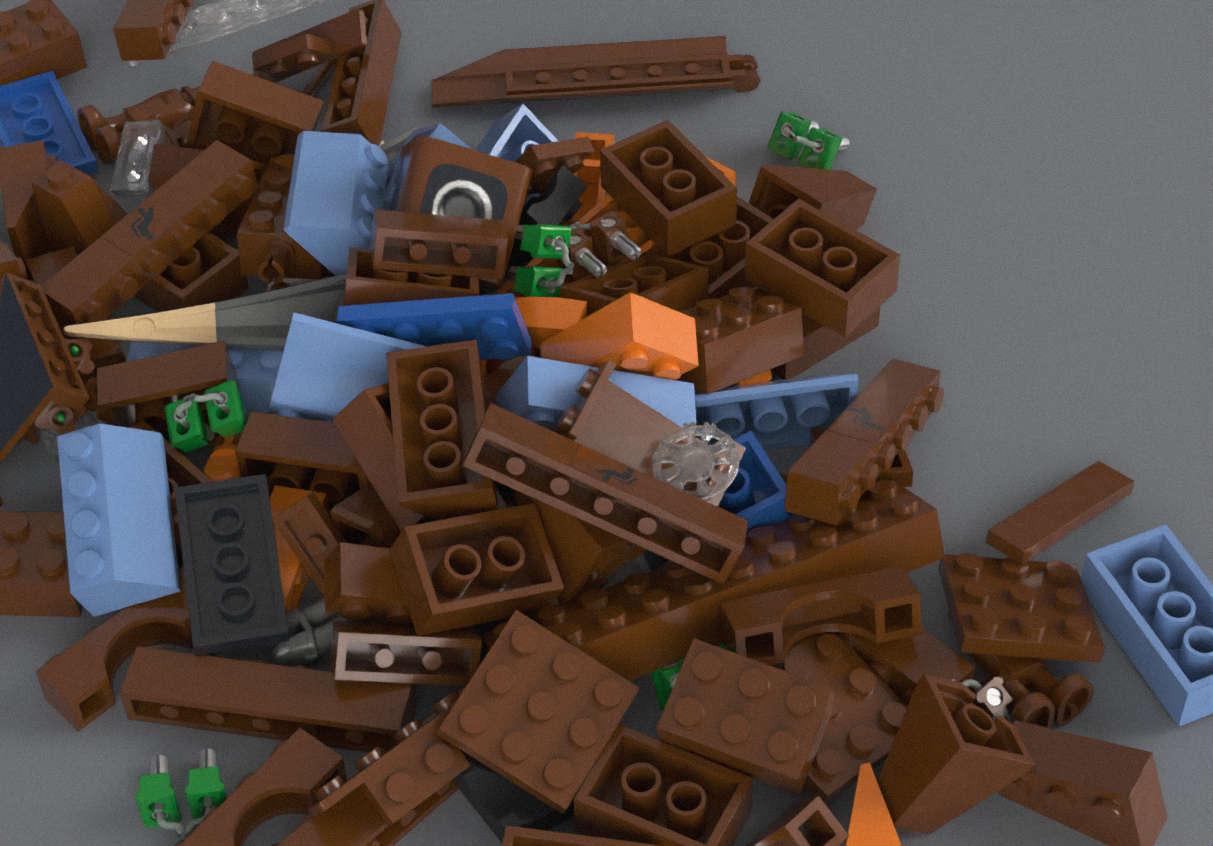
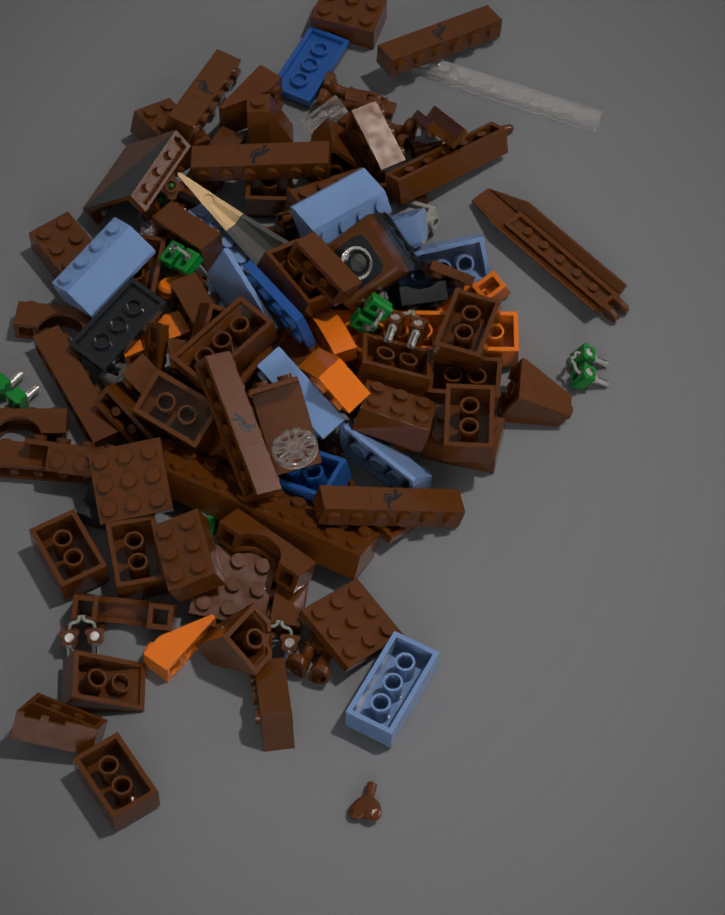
camera: 50 degrees right, 10 degrees up
(1059, 512) = (426, 610): reddish brown tile -> none

